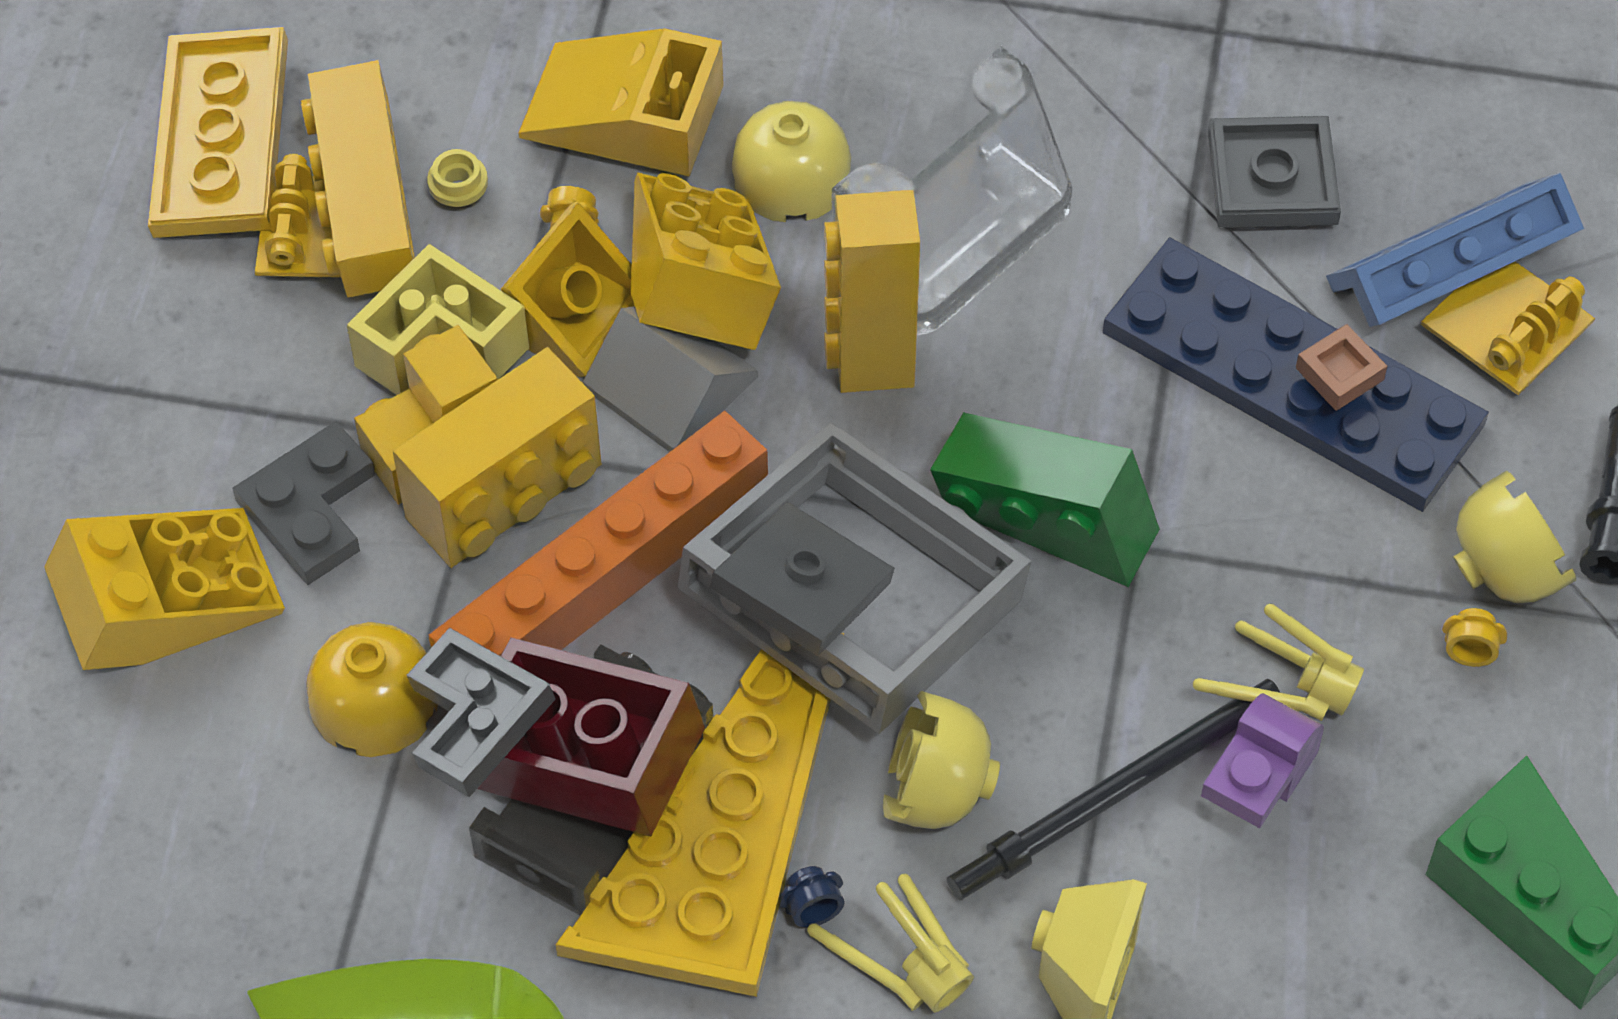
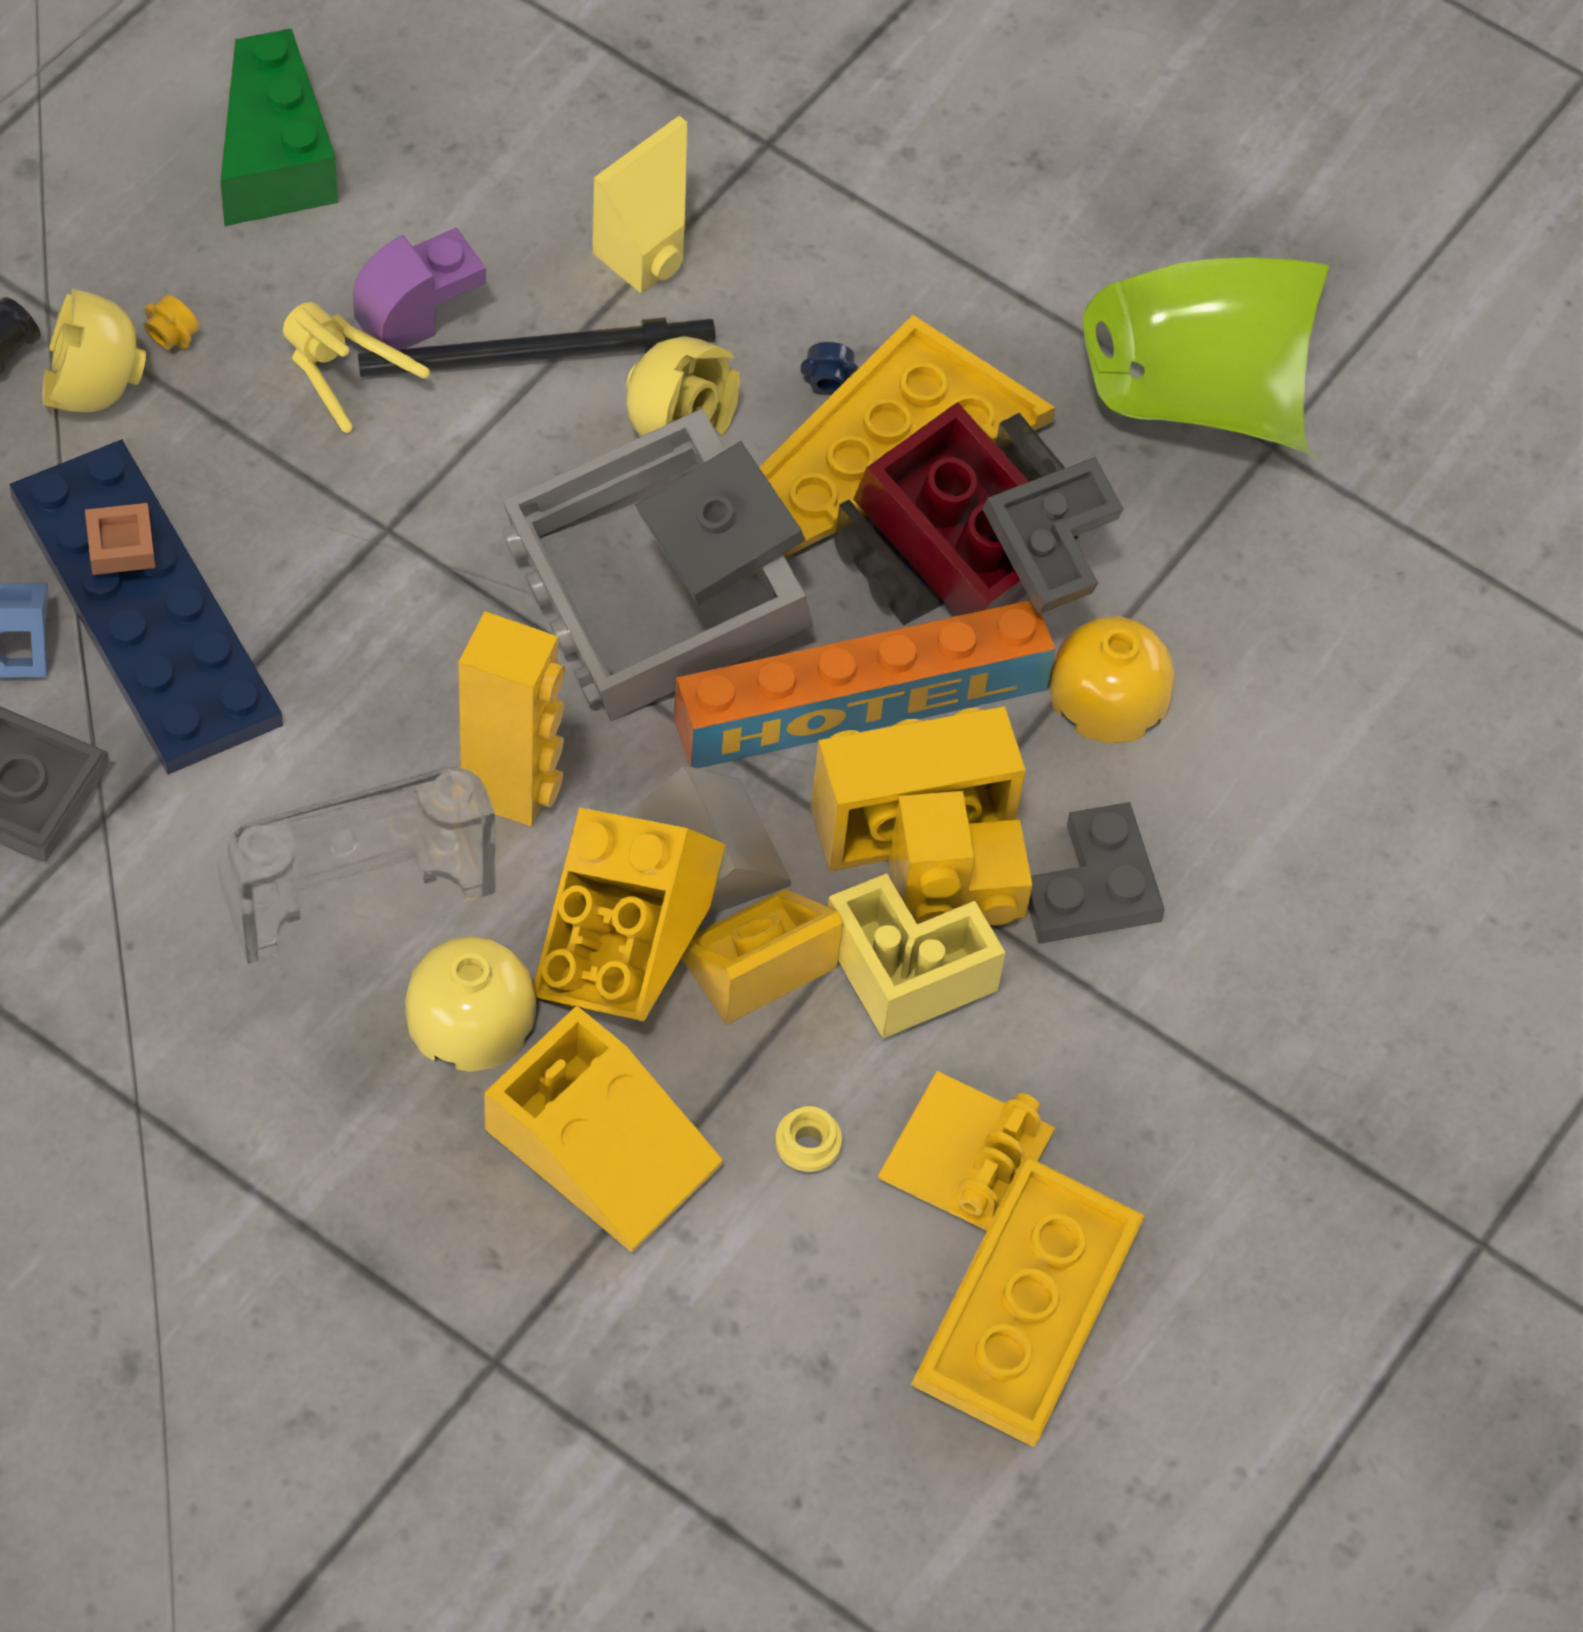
camera: 160 degrees left, 0 degrees up
(158, 583) = (1264, 843): yellow slope -> none
(360, 176) = (911, 1153): yellow brick -> none
(561, 198) = (716, 1046): yellow plate -> none
(934, 968) = (770, 281): light yellow plant -> none
(1050, 492) = (444, 556): green wedge -> none

